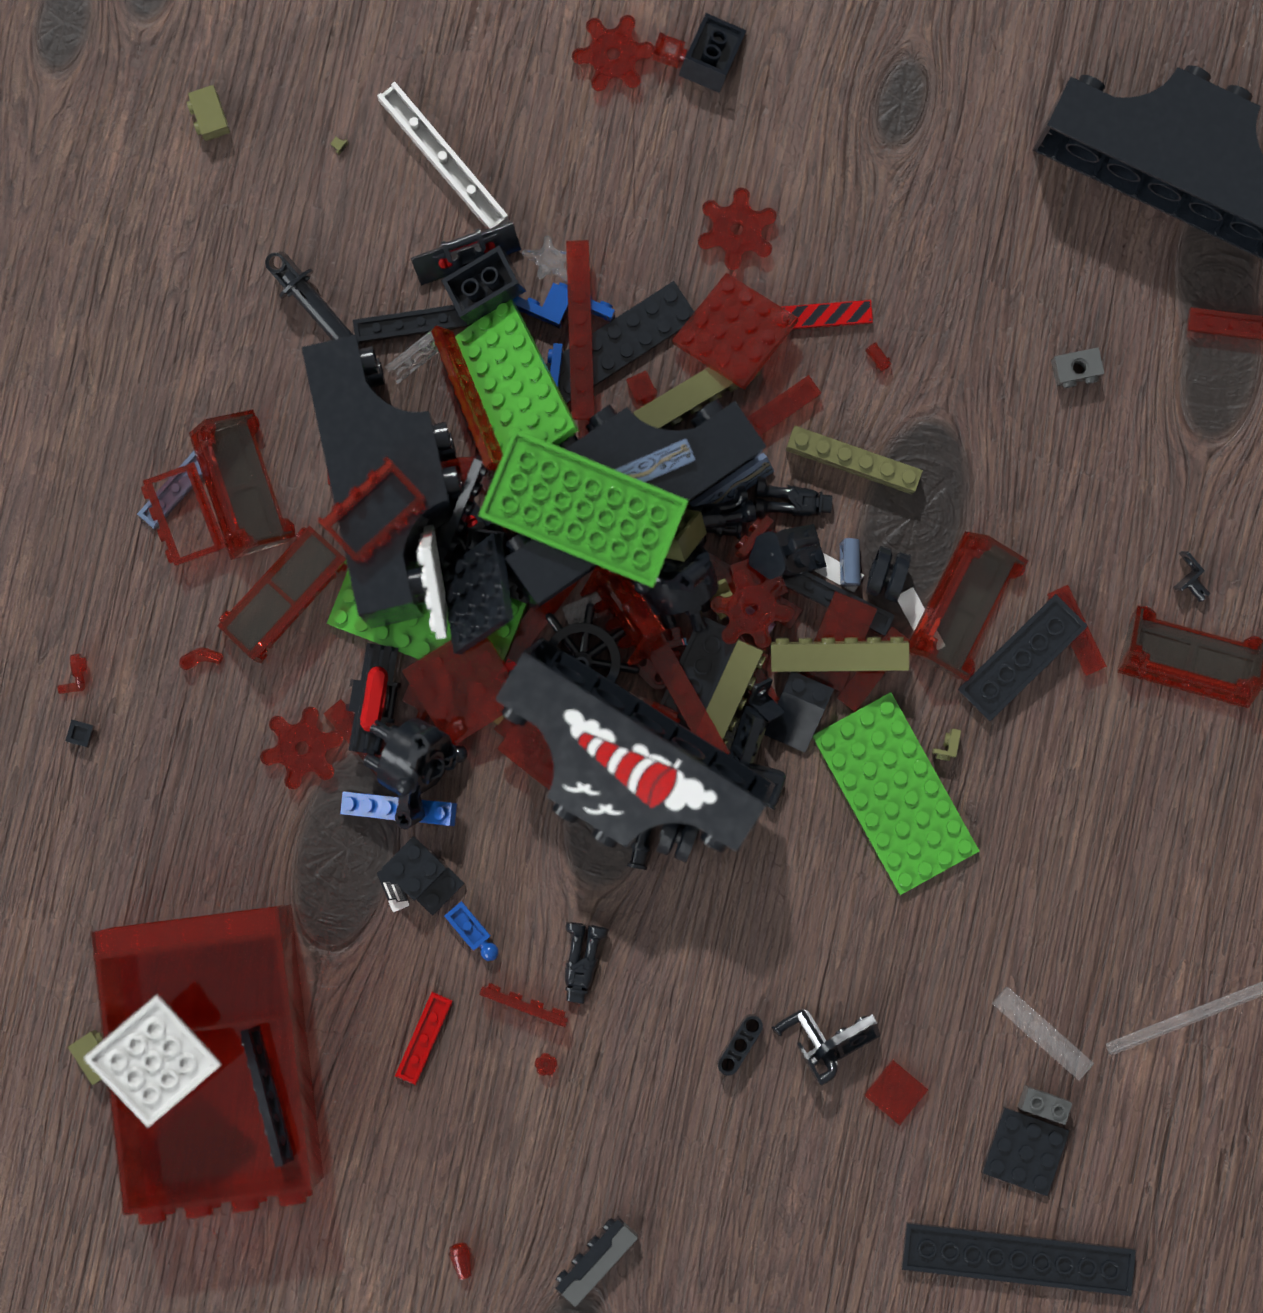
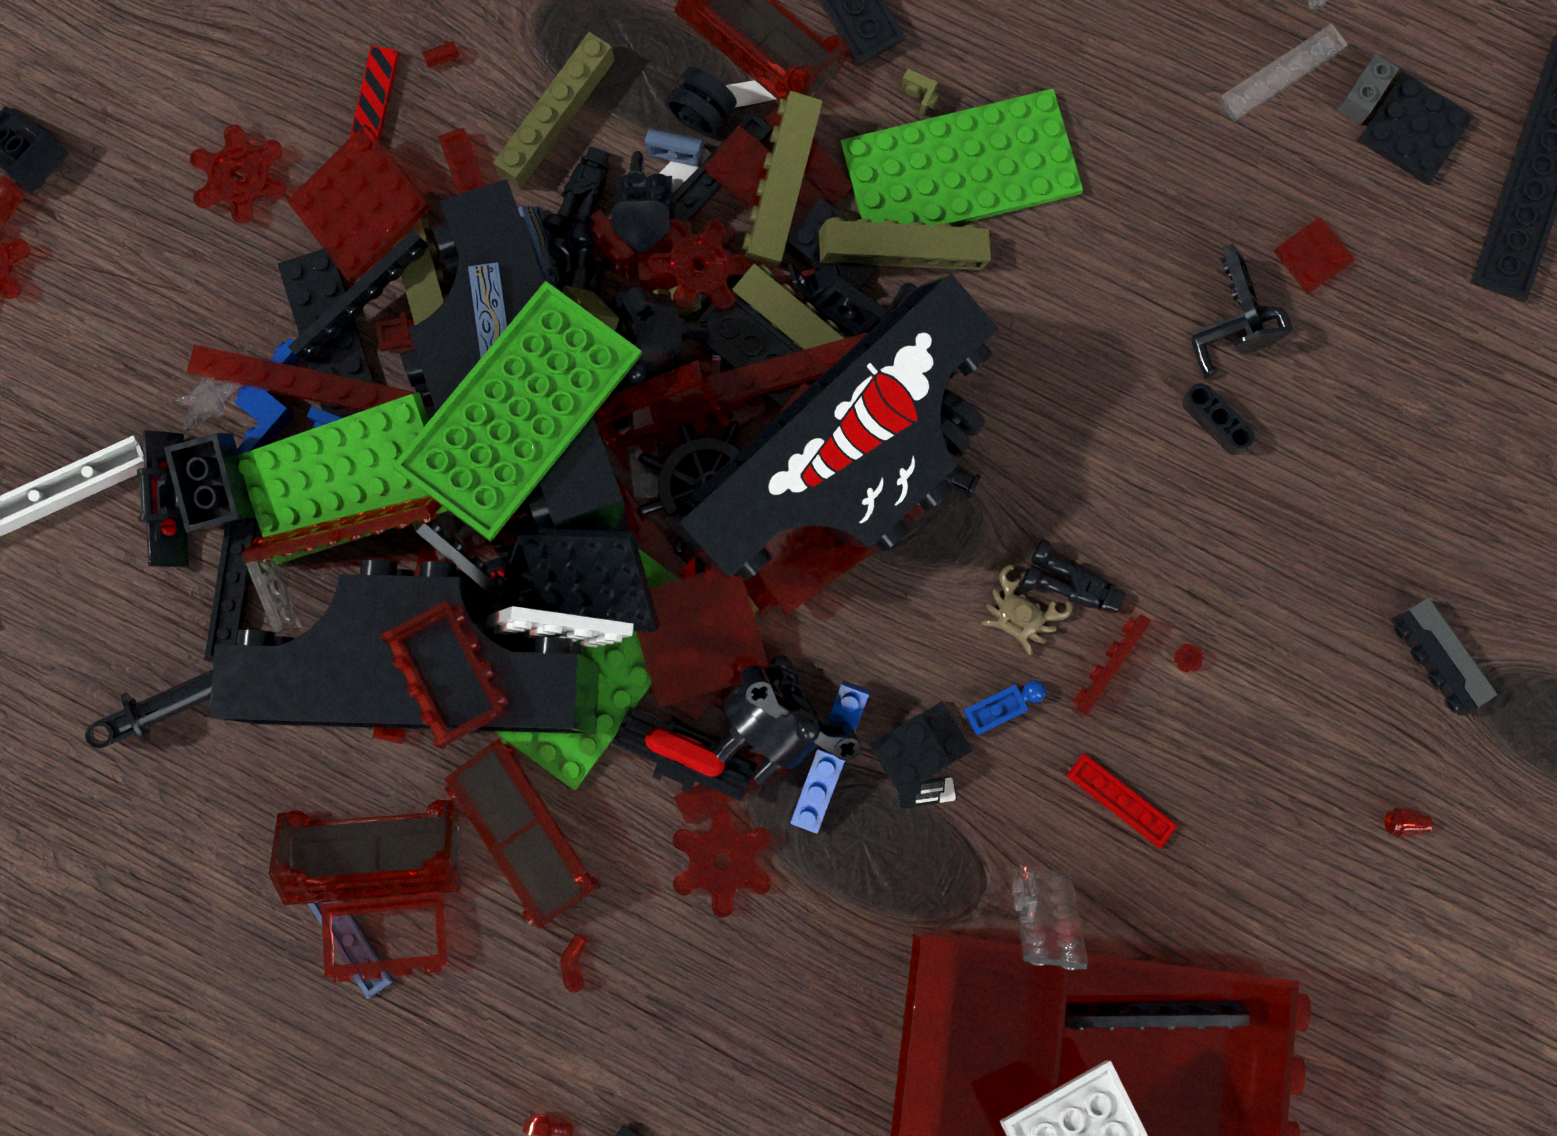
camera: 75 degrees left, 5 degrees down
(316, 998) = (1048, 918): none -> clear bracket
(545, 926) = (1021, 616): none -> dark tan animal
(666, 359) = (362, 292): none -> black plate
(812, 764) = (904, 244): none -> olive brick

